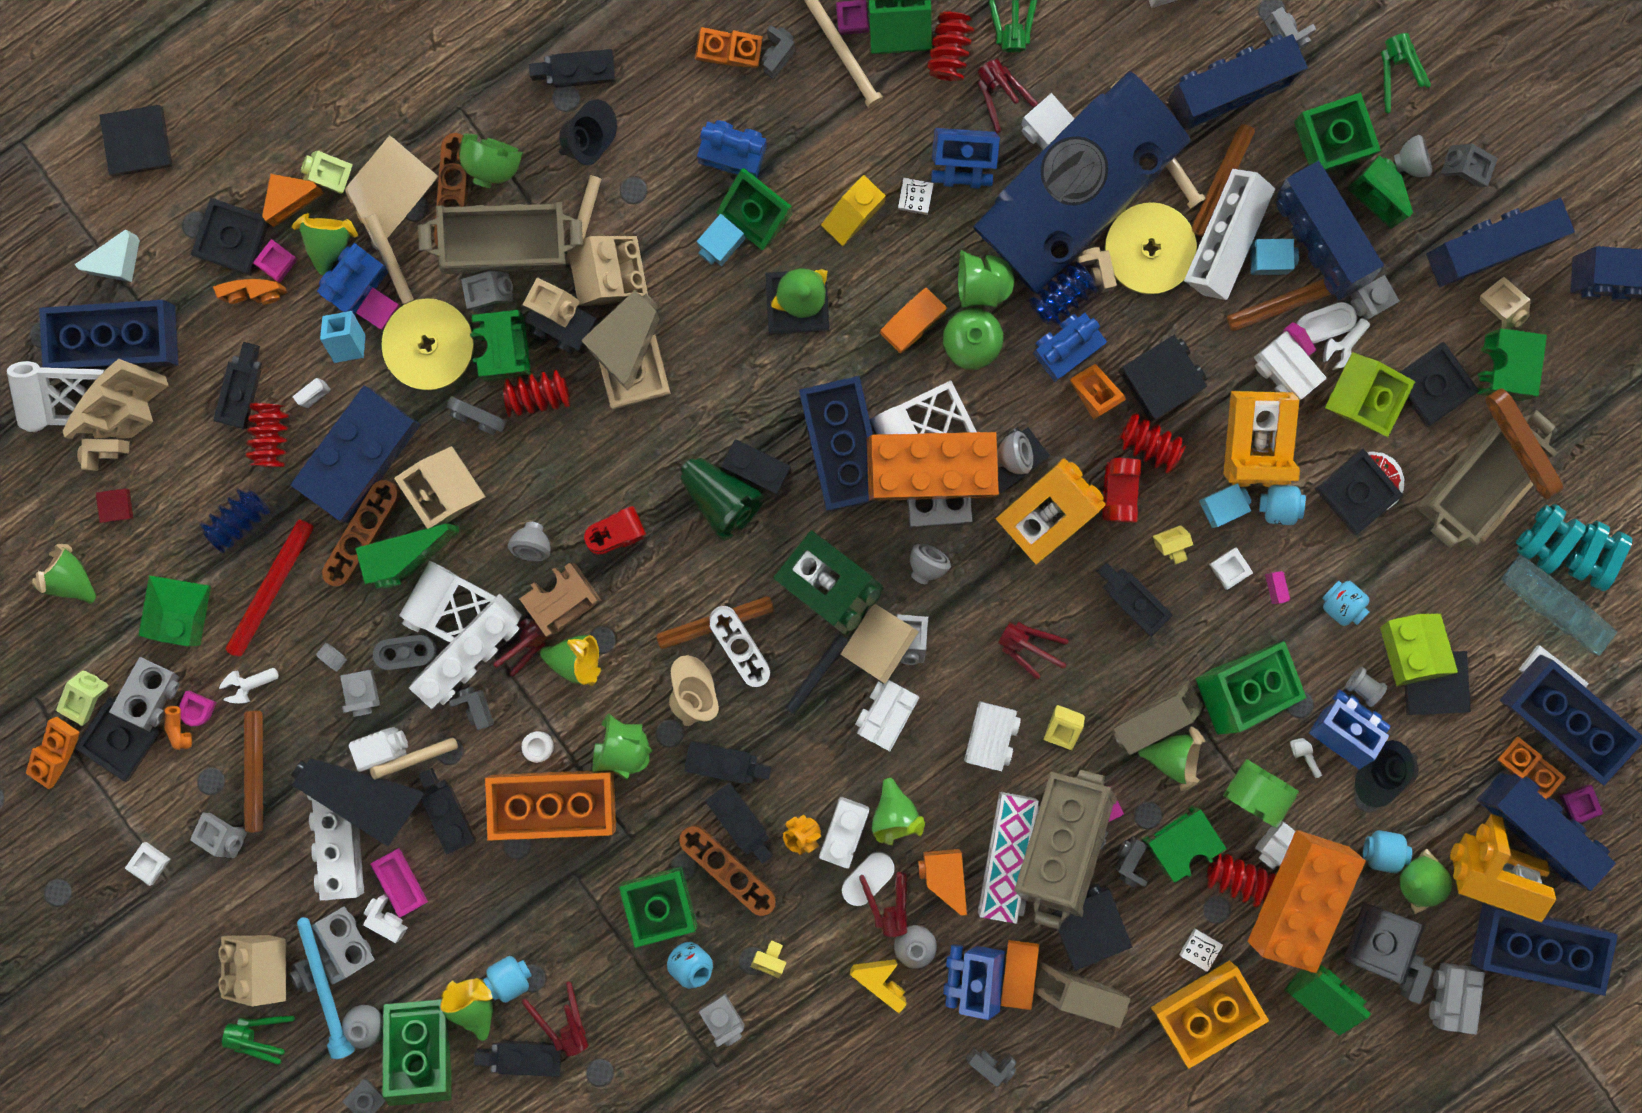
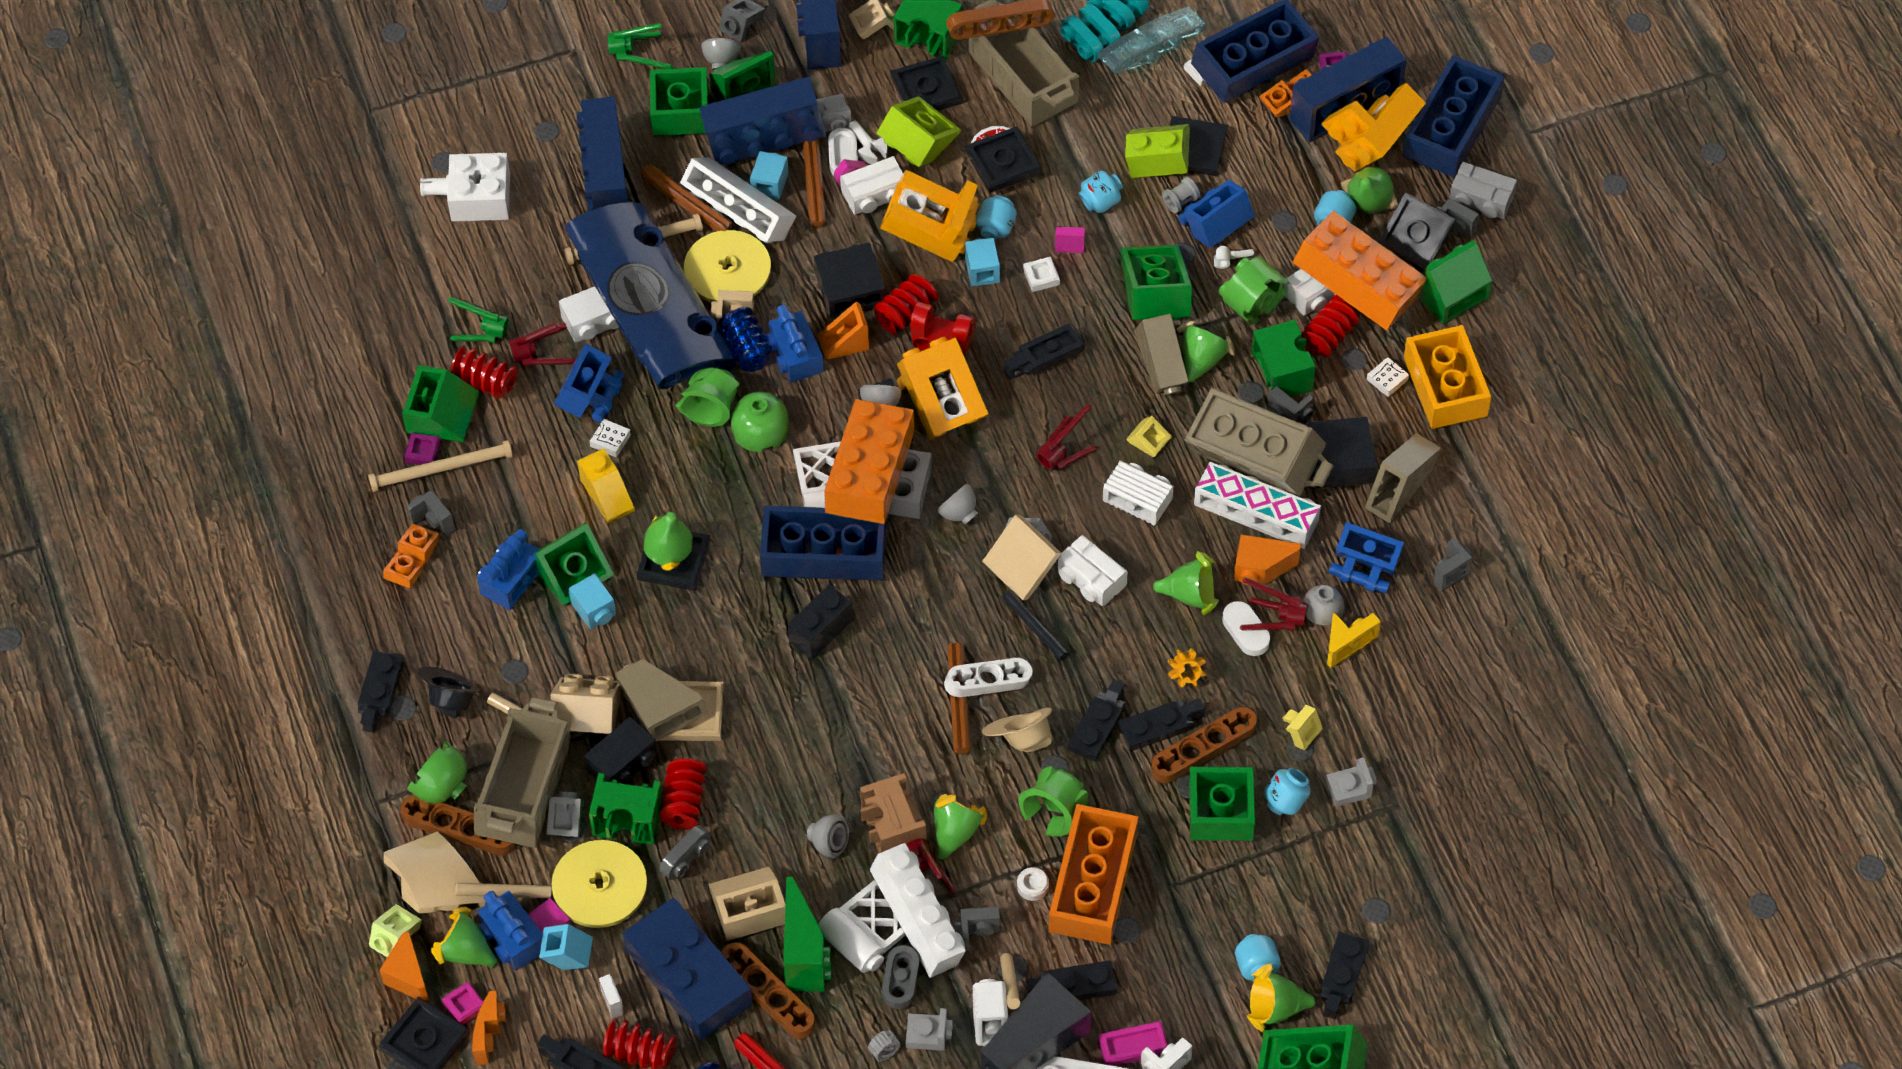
camera: 75 degrees left, 30 degrees down
(551, 302) = (600, 743): tan bracket -> none
(572, 1035) = (1333, 916): dark red plant -> none
(623, 528) = (843, 752): red piece -> none
(720, 497) = (837, 657): dark green cone -> none
(844, 832) = (1194, 629): white brick -> none
(845, 598) = (955, 594): dark green brick -> none
(913, 320) = (726, 463): orange slope -> none
(1019, 974) = (1372, 518): orange slope -> none
(1173, 543) = (1004, 308): light yellow tile -> none
(1283, 23) = (565, 120): light grey bracket -> none
(1387, 775) = (1266, 195): black piece -> none

